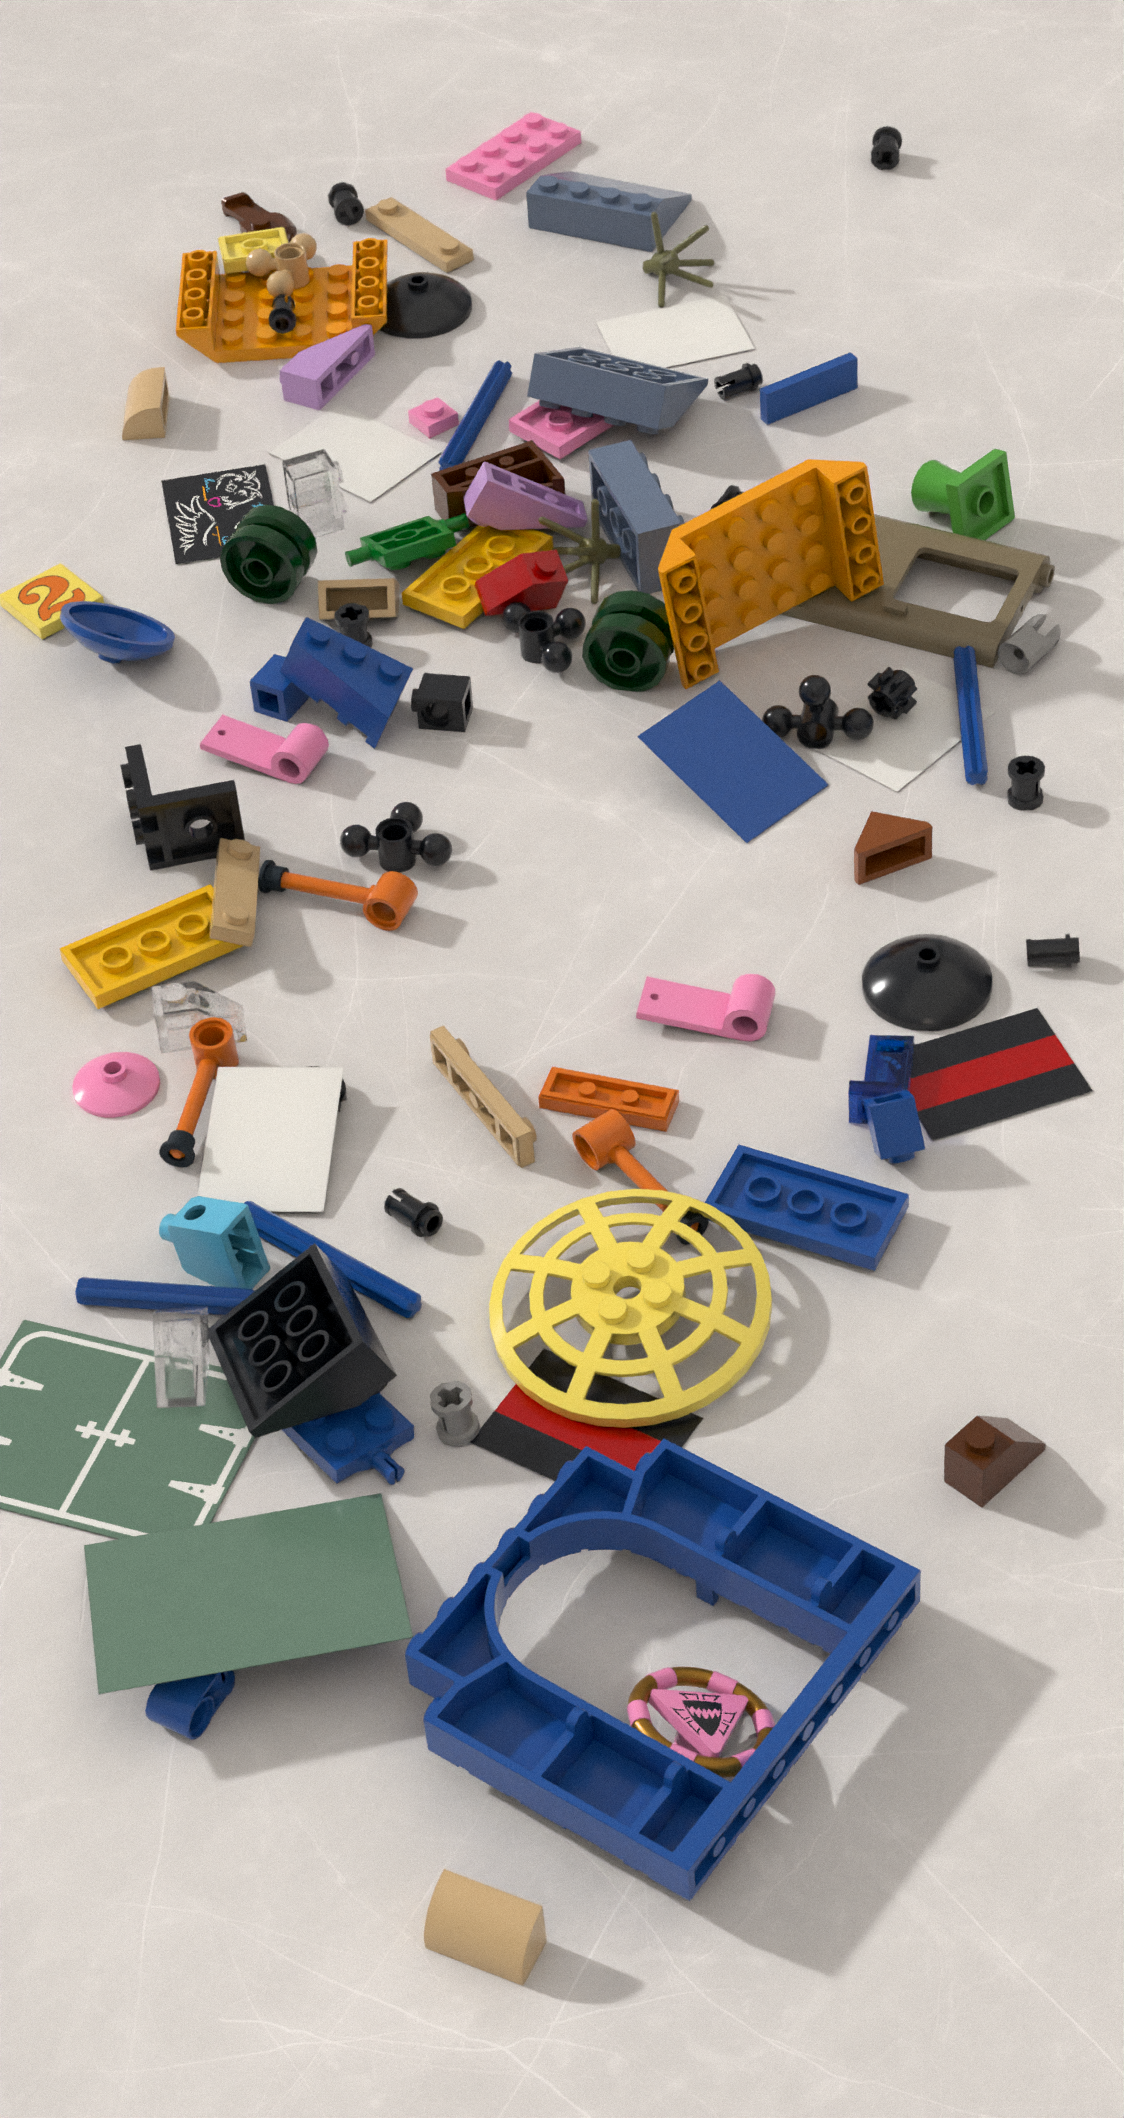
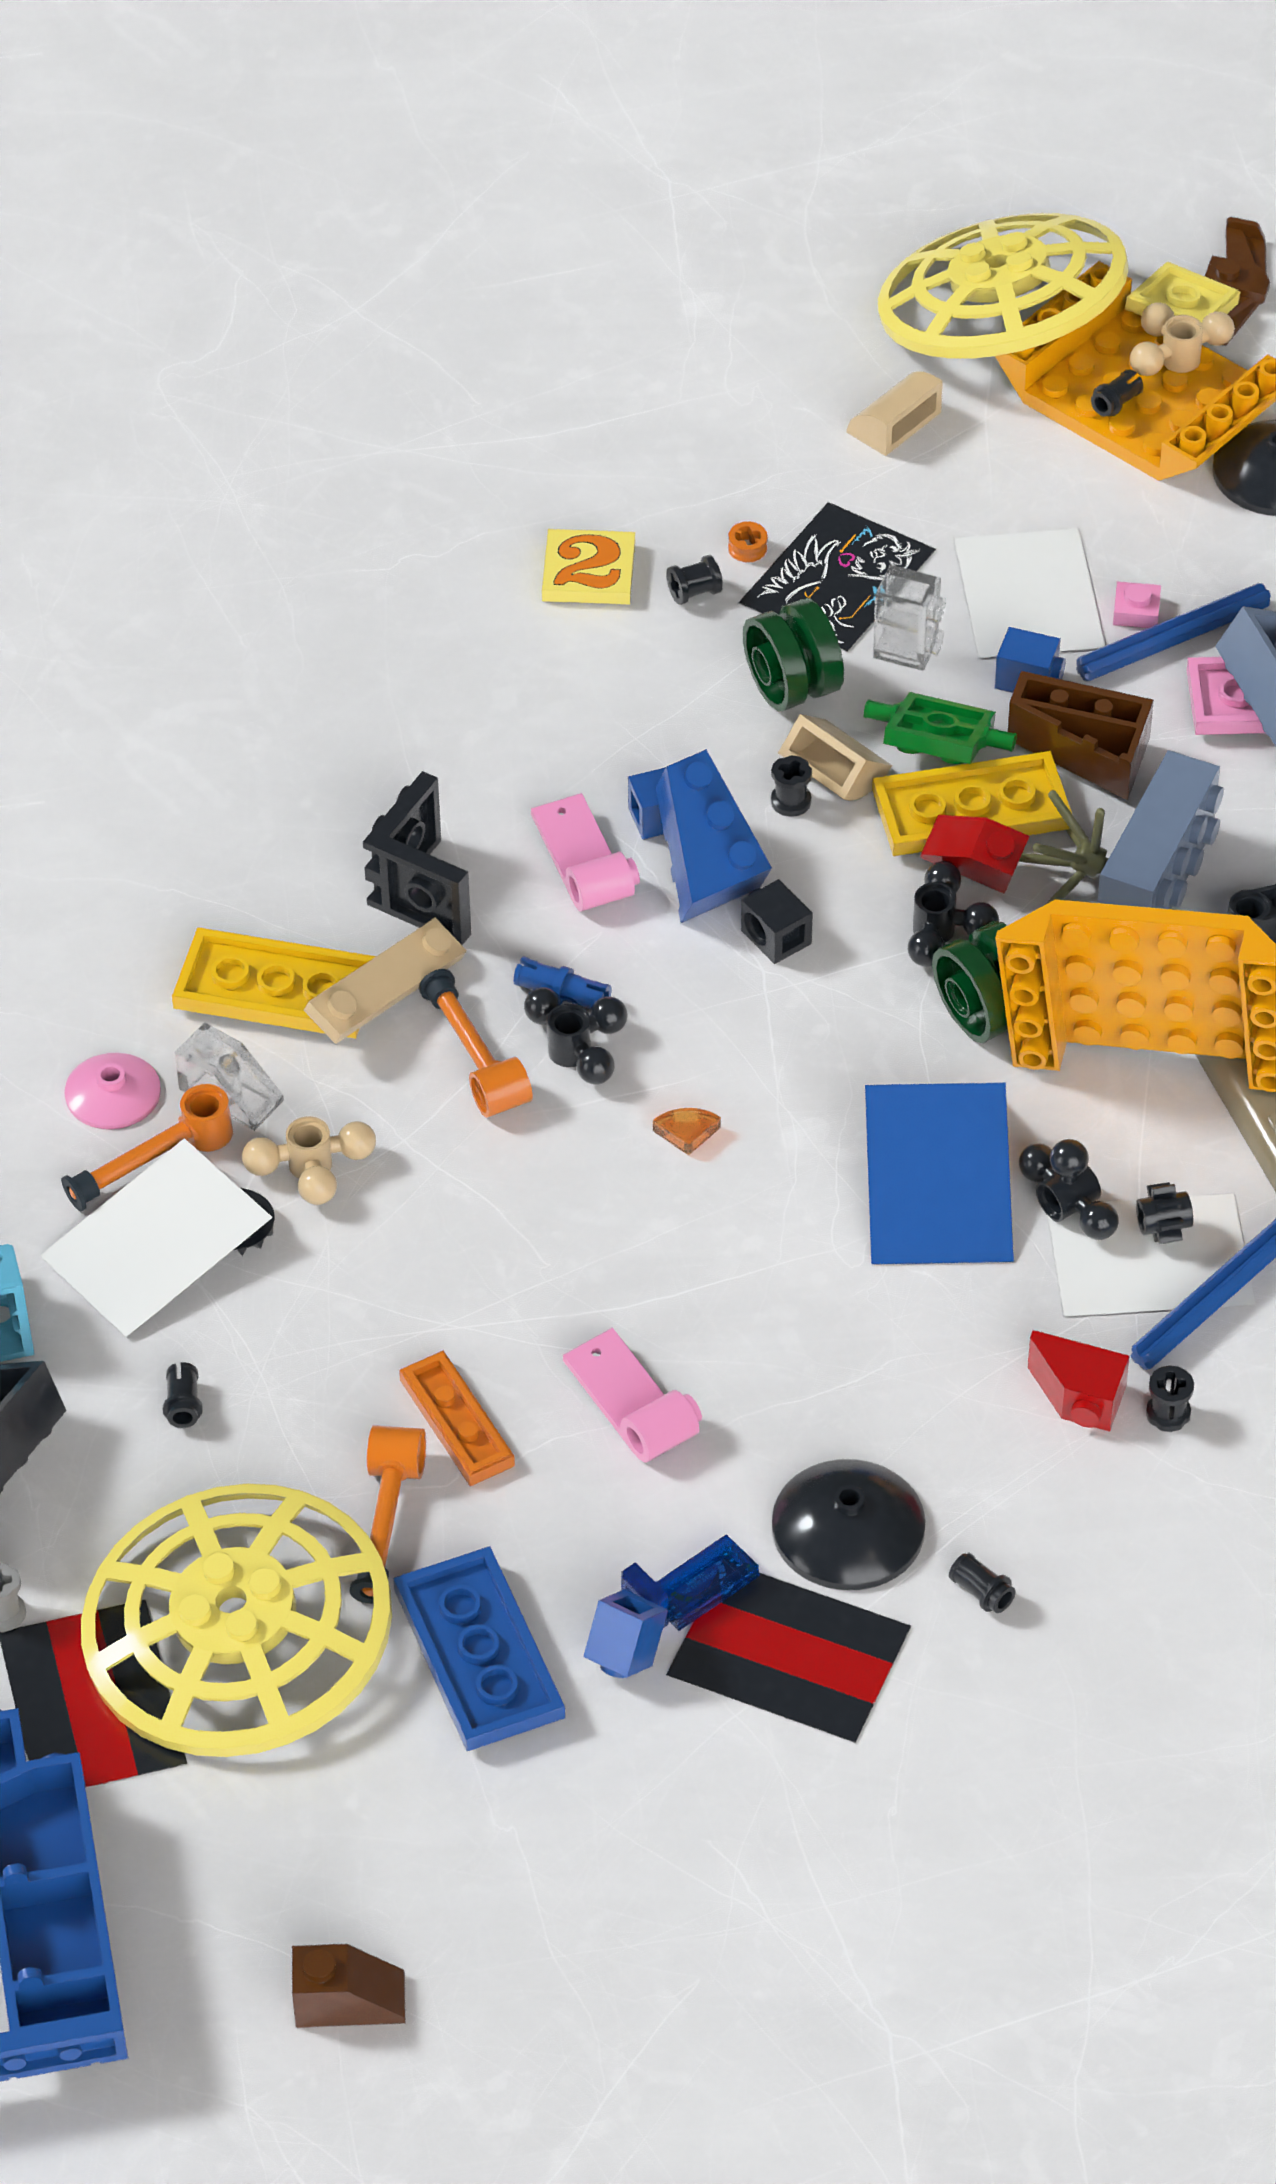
camera: 40 degrees right, 5 degrees up
(116, 631) = (588, 638): blue dish -> none
(129, 288) = (1000, 271): none -> light yellow dish
(133, 568) = (694, 579): none -> black bush
(140, 527) = (747, 531): none -> orange bush
(311, 1023) = (309, 1154): none -> tan piece
(326, 368) = (1096, 481): lavender slope -> none
(331, 828) = (563, 981): none -> blue pin
(361, 1276) = (77, 1384): blue axle -> none
(410, 479) = (1028, 653): none -> blue brick
(483, 1098) = (337, 1384): tan plate -> none
(517, 503) = (1068, 760): lavender slope -> none
(534, 847) = (686, 1127): none -> clear orange tile
(890, 845) = (967, 1364): dark orange slope -> none
(962, 808) = (1079, 1378): none -> red slope

